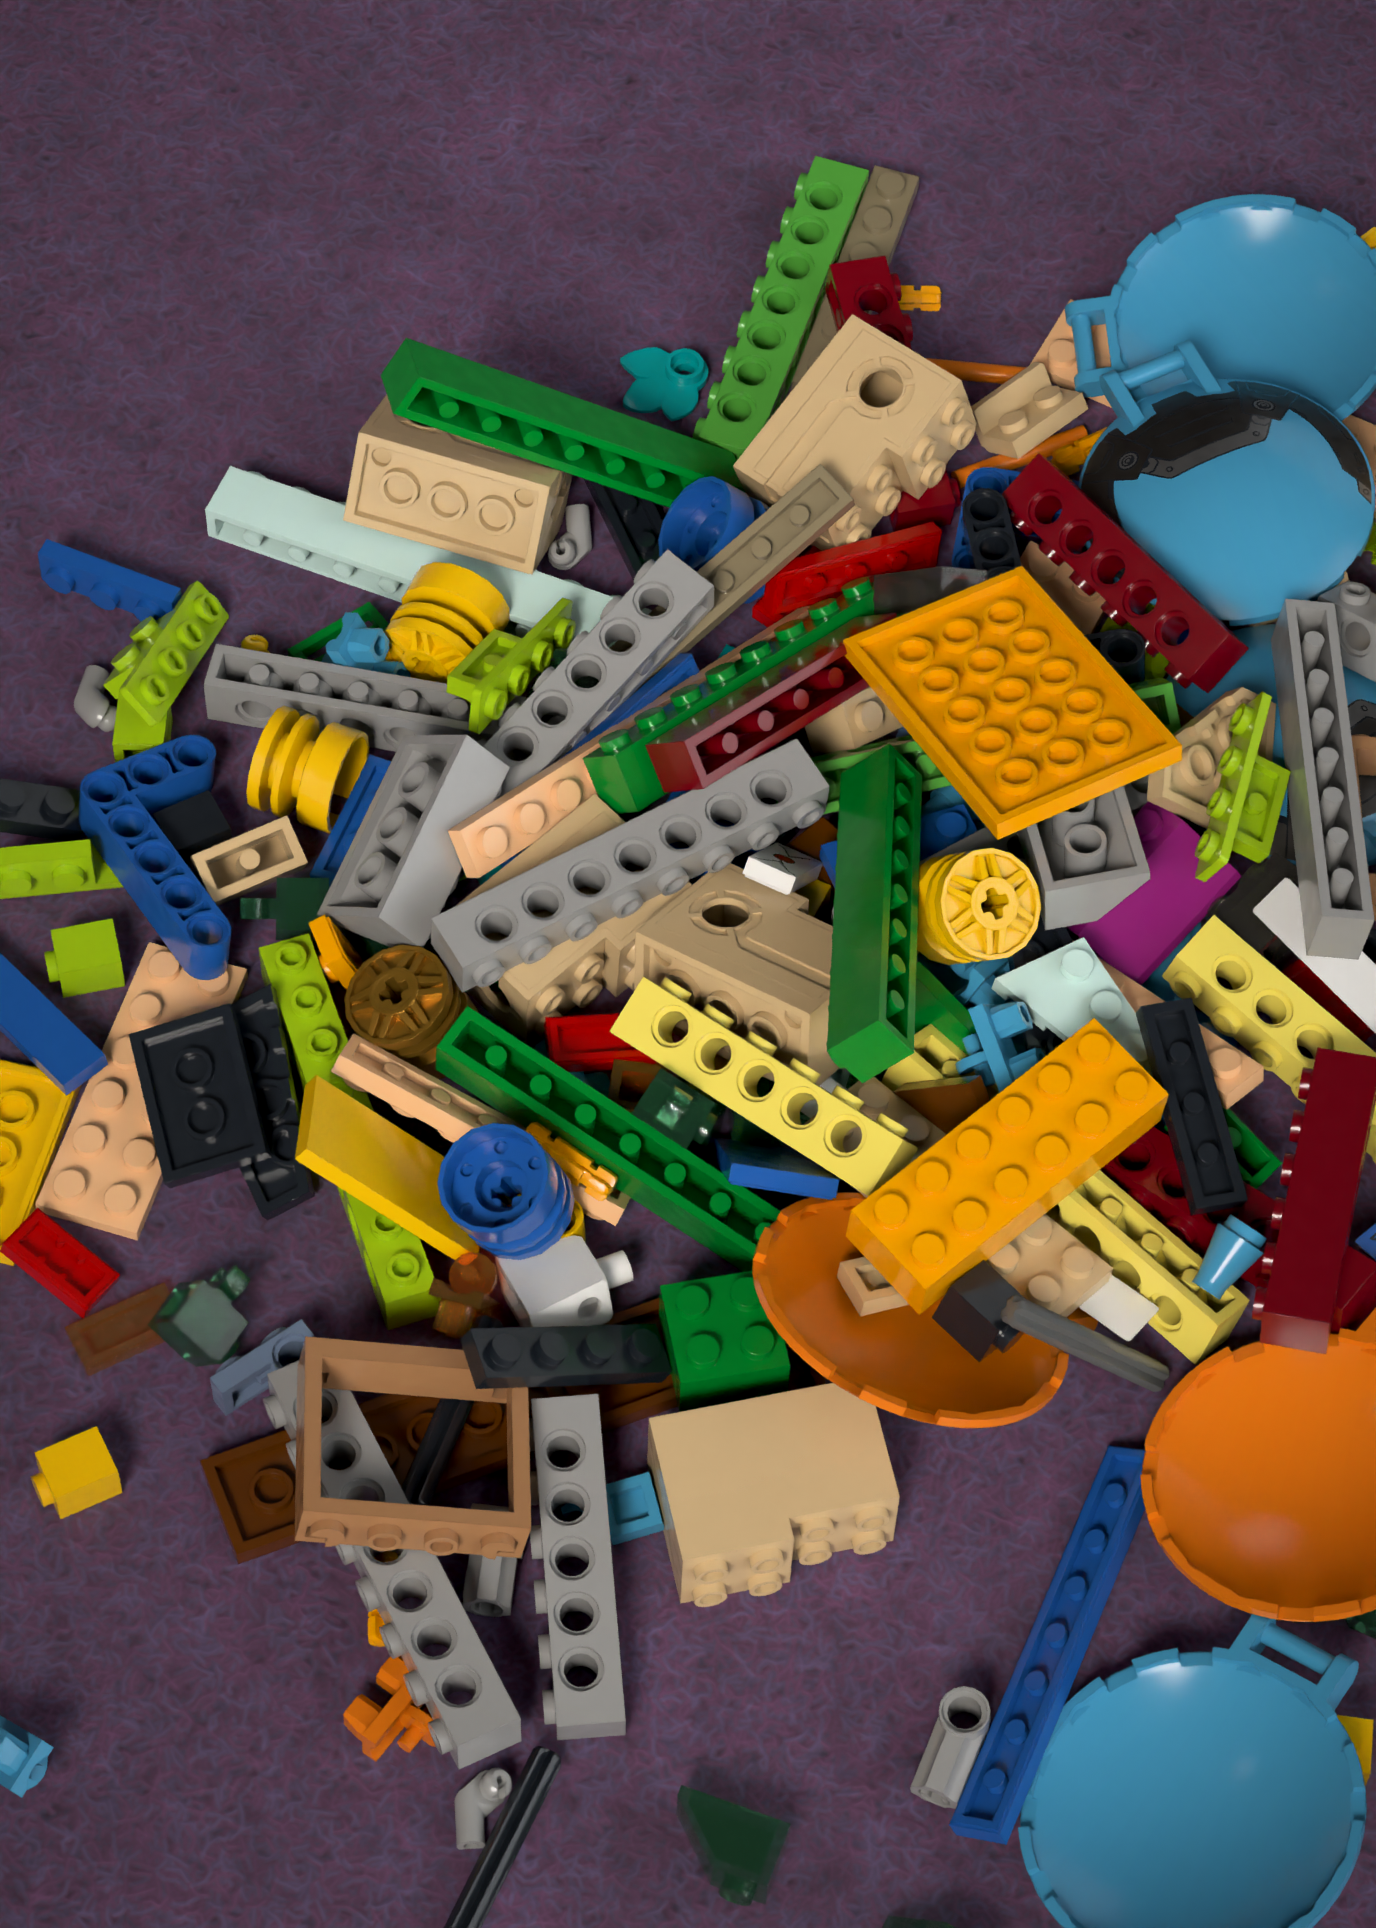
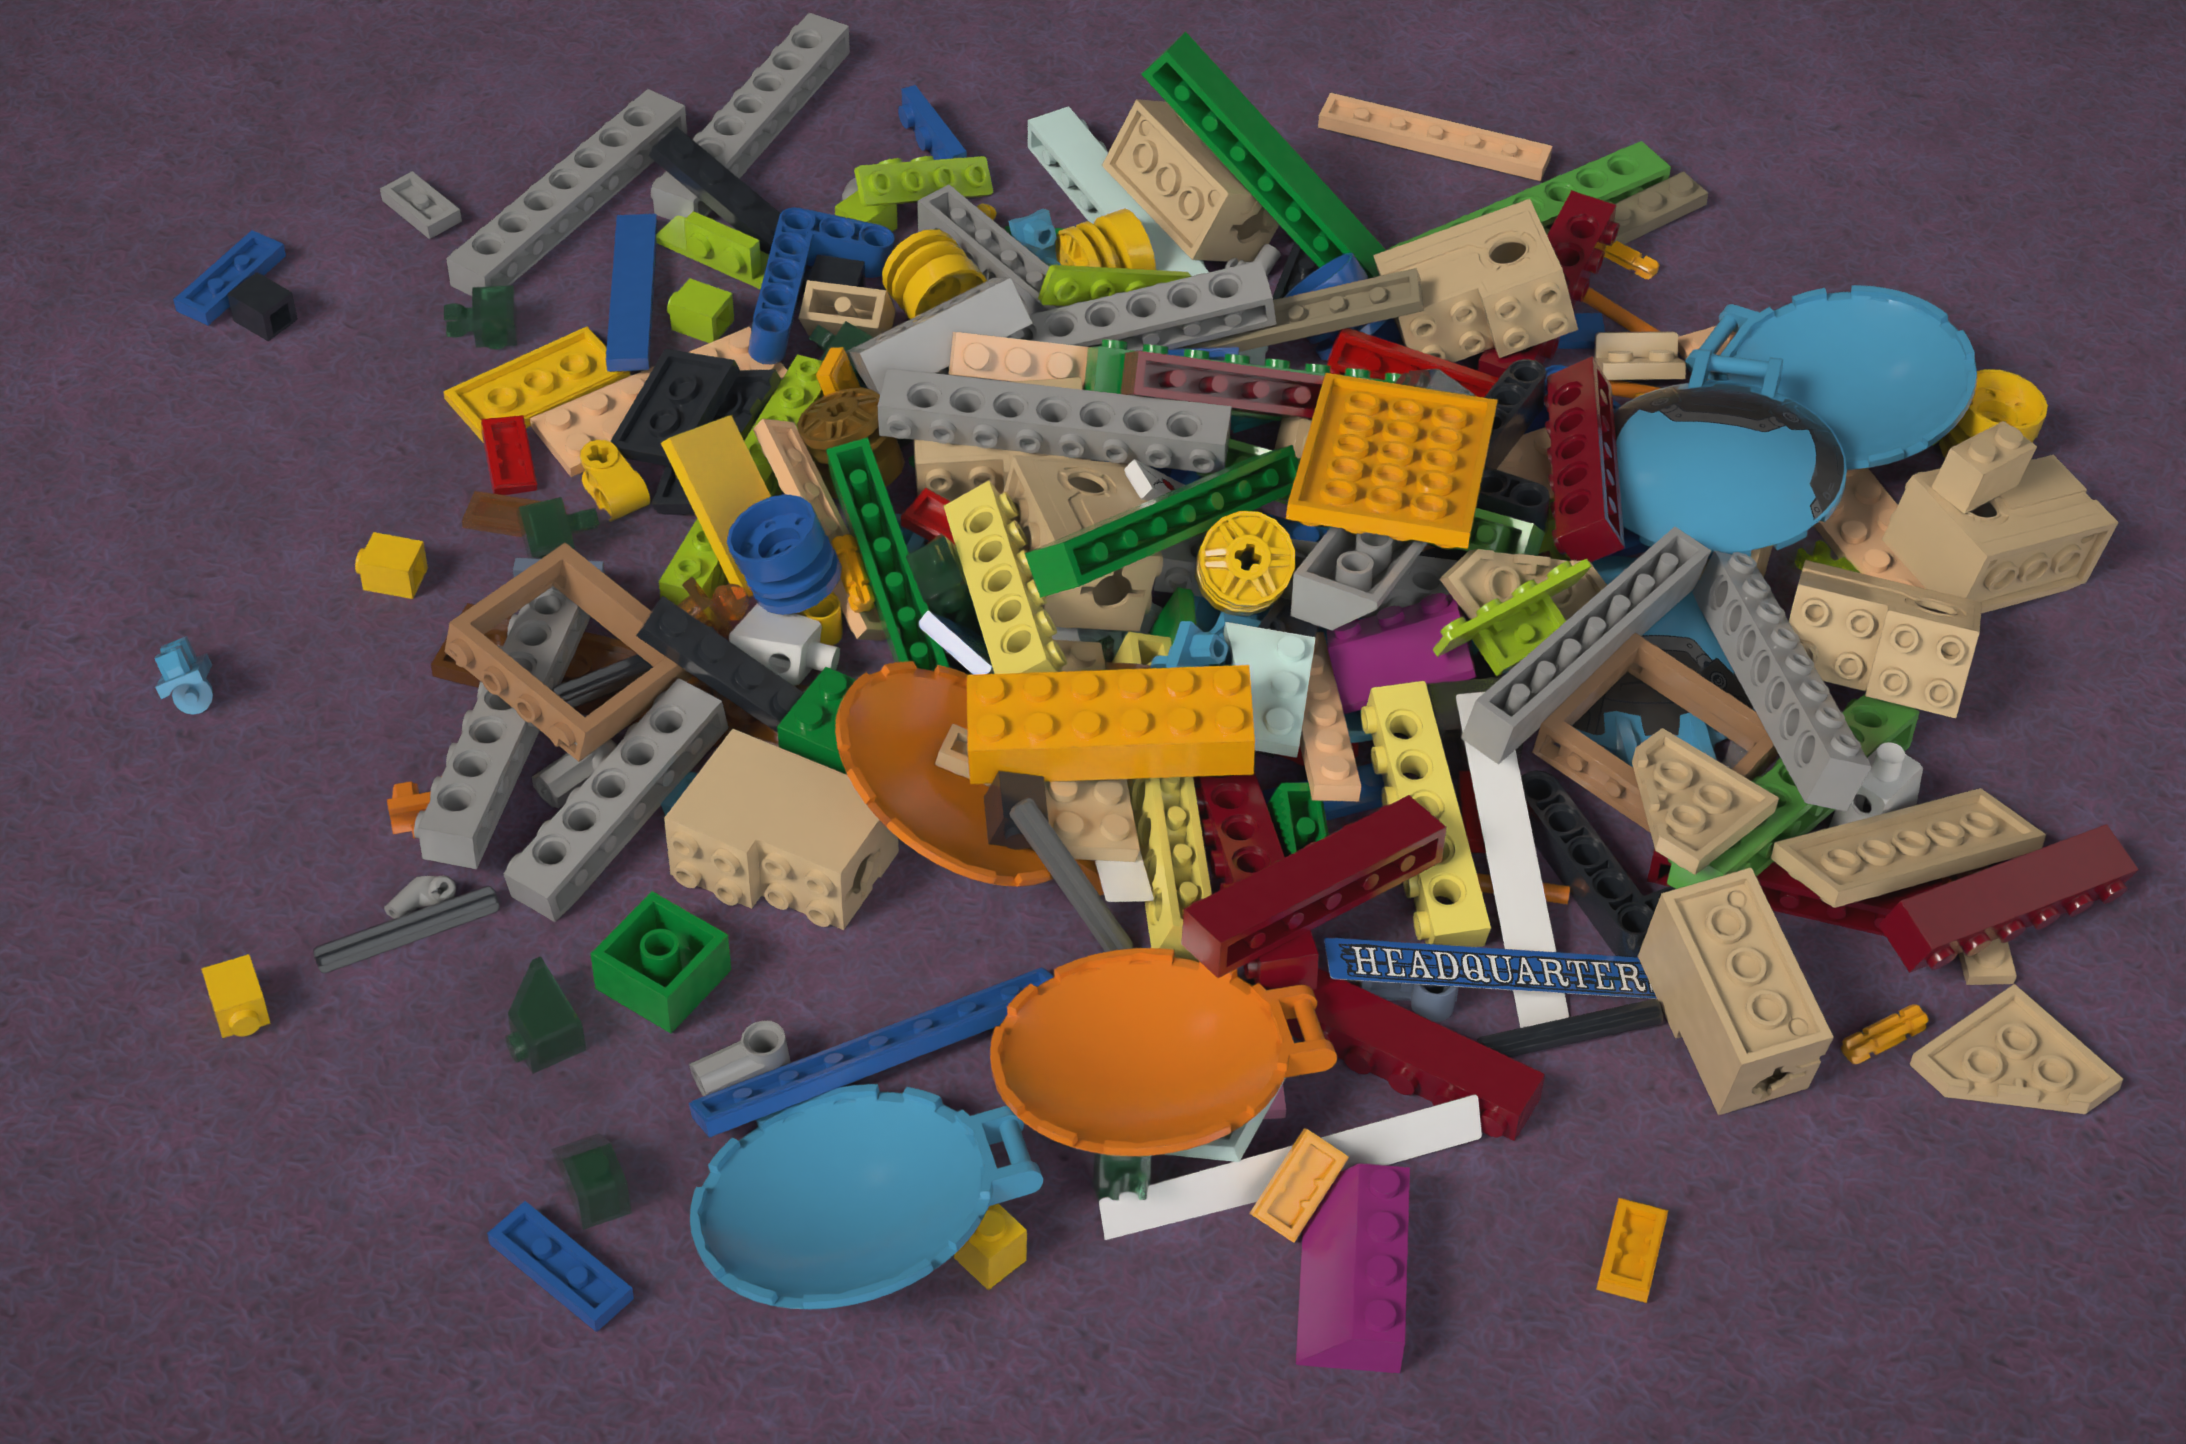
camera: 40 degrees right, 10 degrees down
(201, 1218) = (612, 480): none -> yellow piece
(601, 269) = (1435, 136): none -> light nougat plate
(660, 385) = (1410, 216): teal plate -> none
(789, 1703) = (661, 962): none -> green brick
(1193, 1106) = (1281, 776): black plate -> none
(1228, 1256) = (1213, 877): dark azure cone -> none

